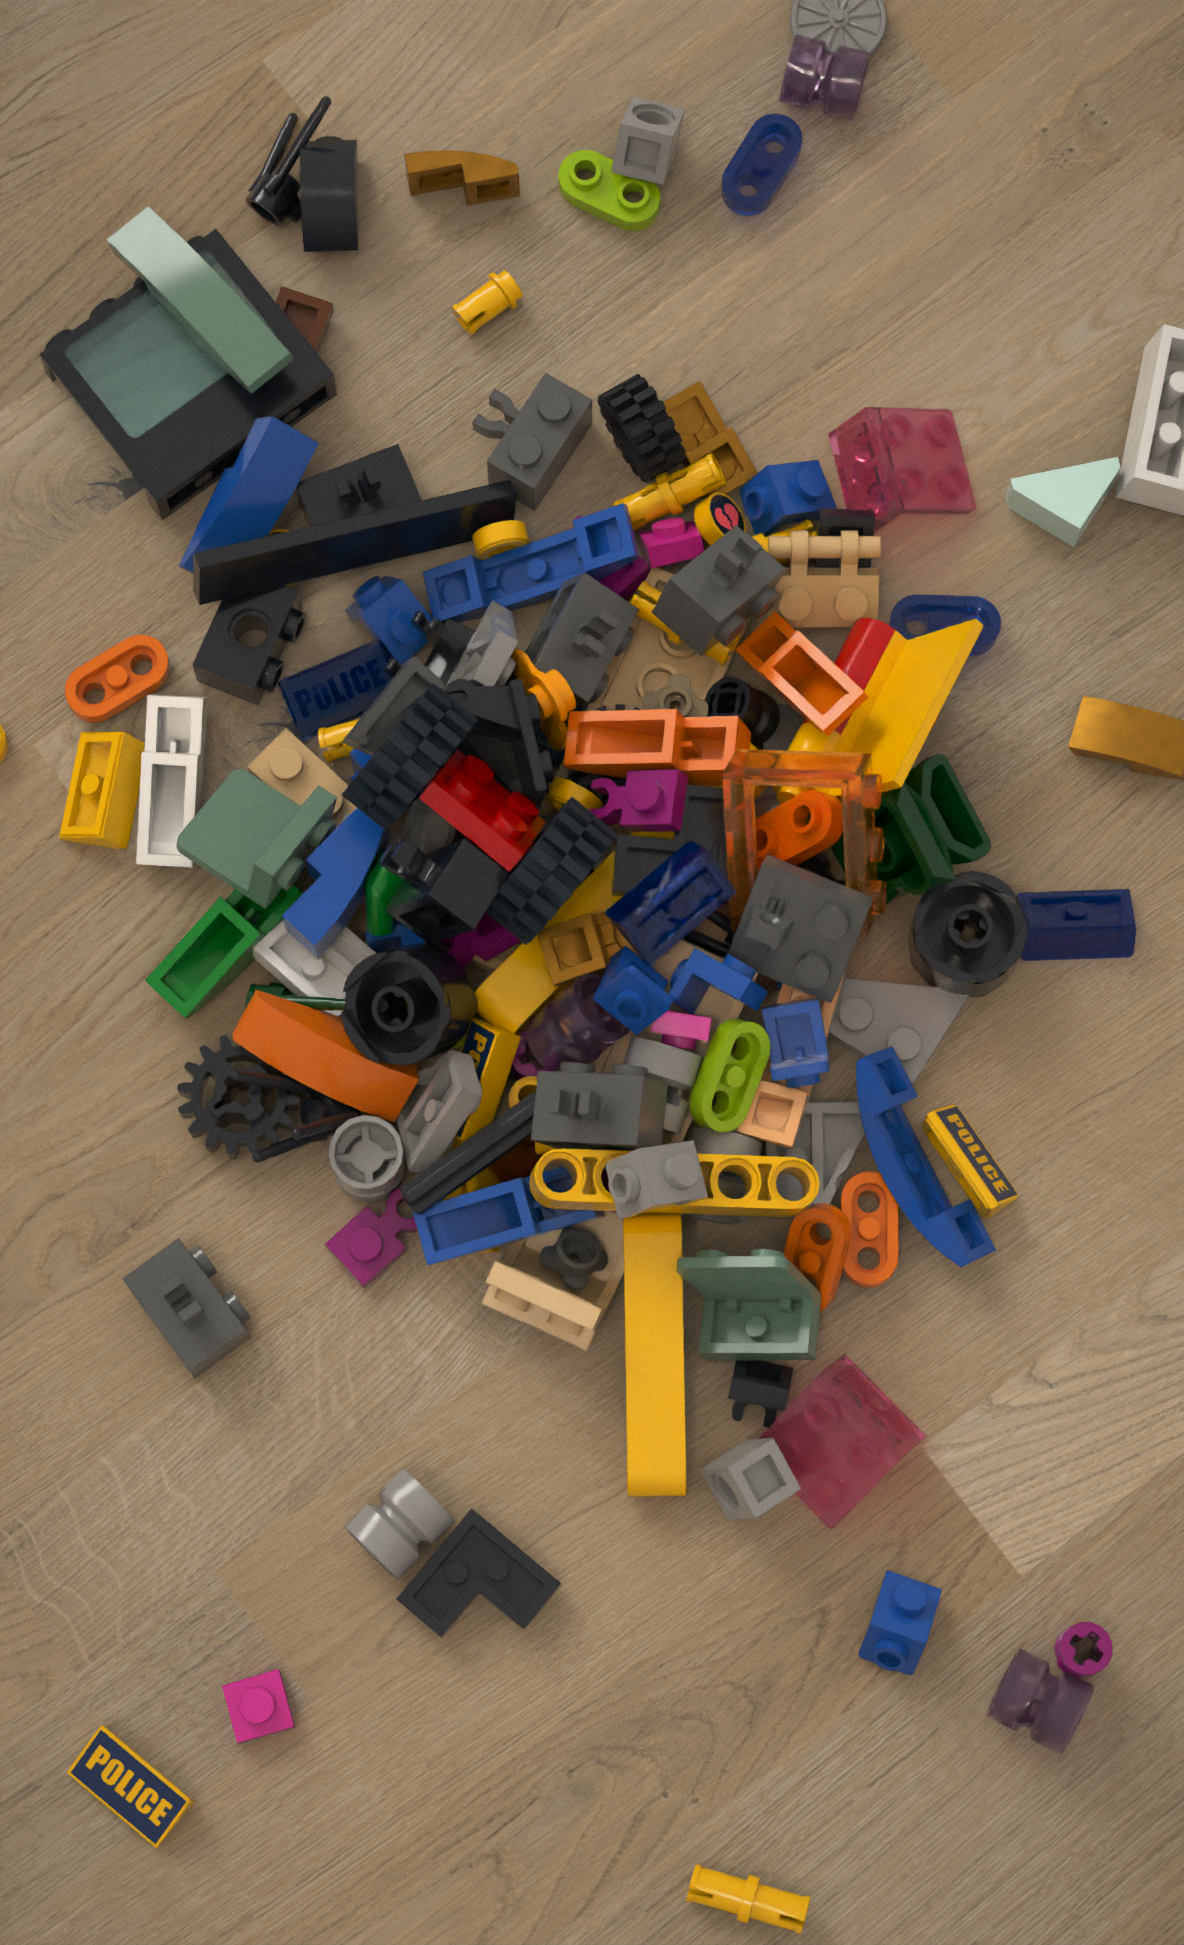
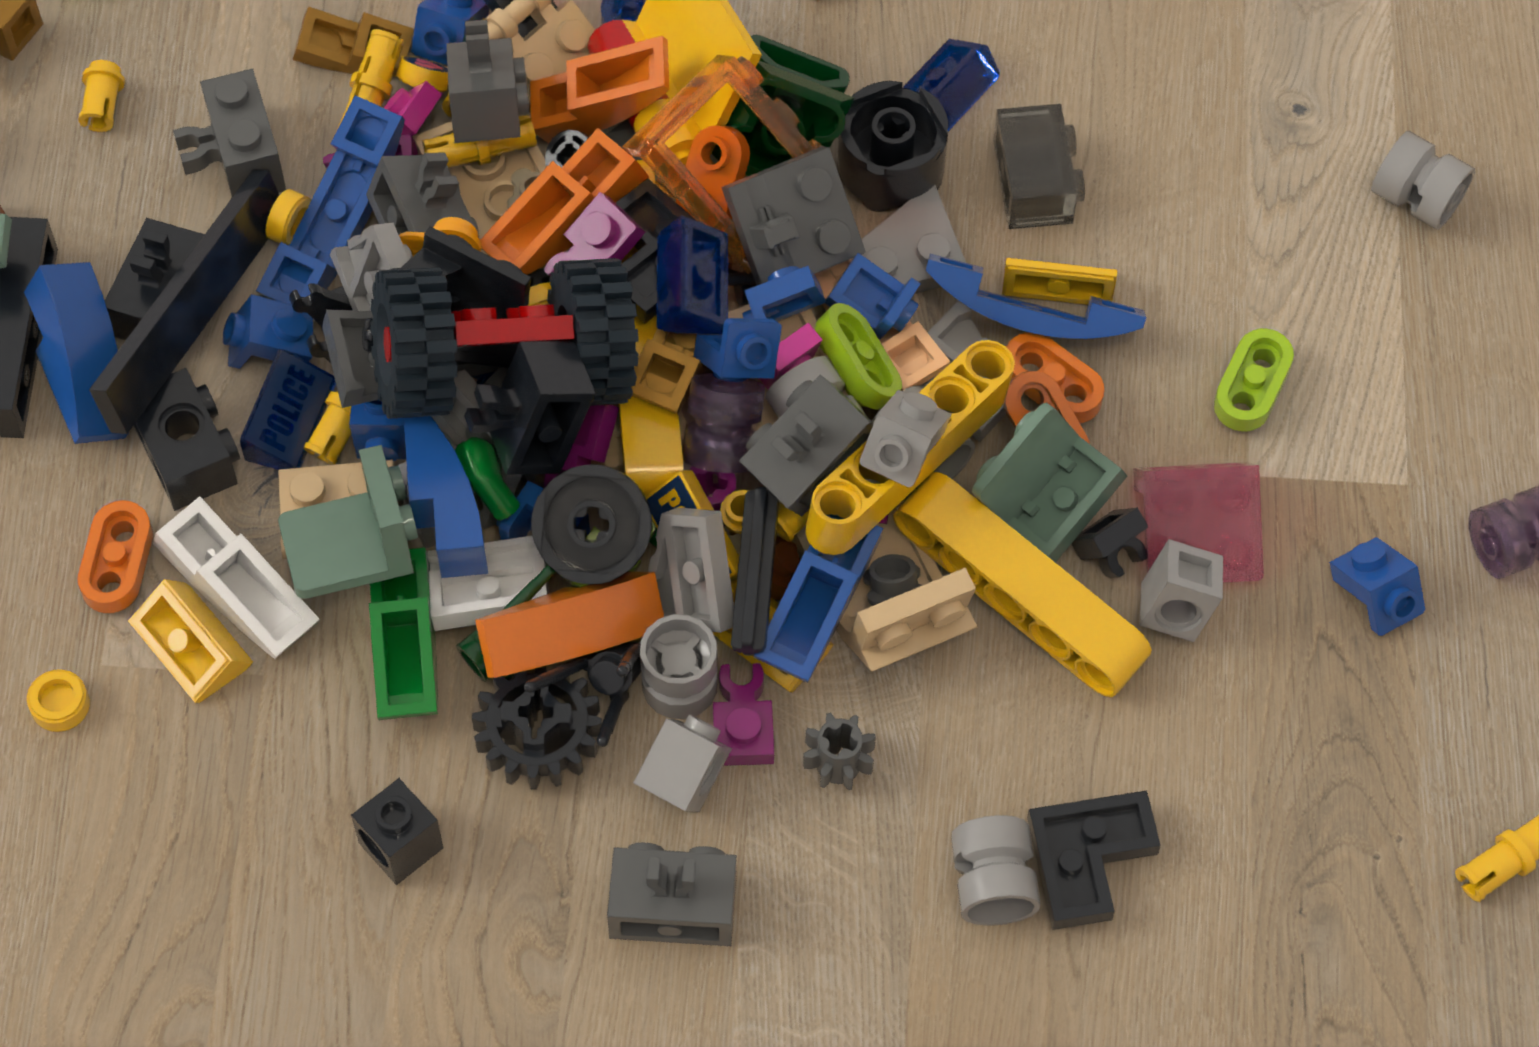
camera: 50 degrees left, 15 degrees down
(71, 1072) = (397, 831): none -> black brick
(291, 1229) = (683, 763): none -> light grey brick
(388, 1325) = (851, 759): none -> dark grey gear
(641, 428) = (305, 60): black tyre -> none
(1003, 1385) = (1251, 383): none -> lime plate
(1055, 1059) = (1037, 166): none -> clear smoke brick
(1101, 1648) = (1505, 474): magenta bush -> none

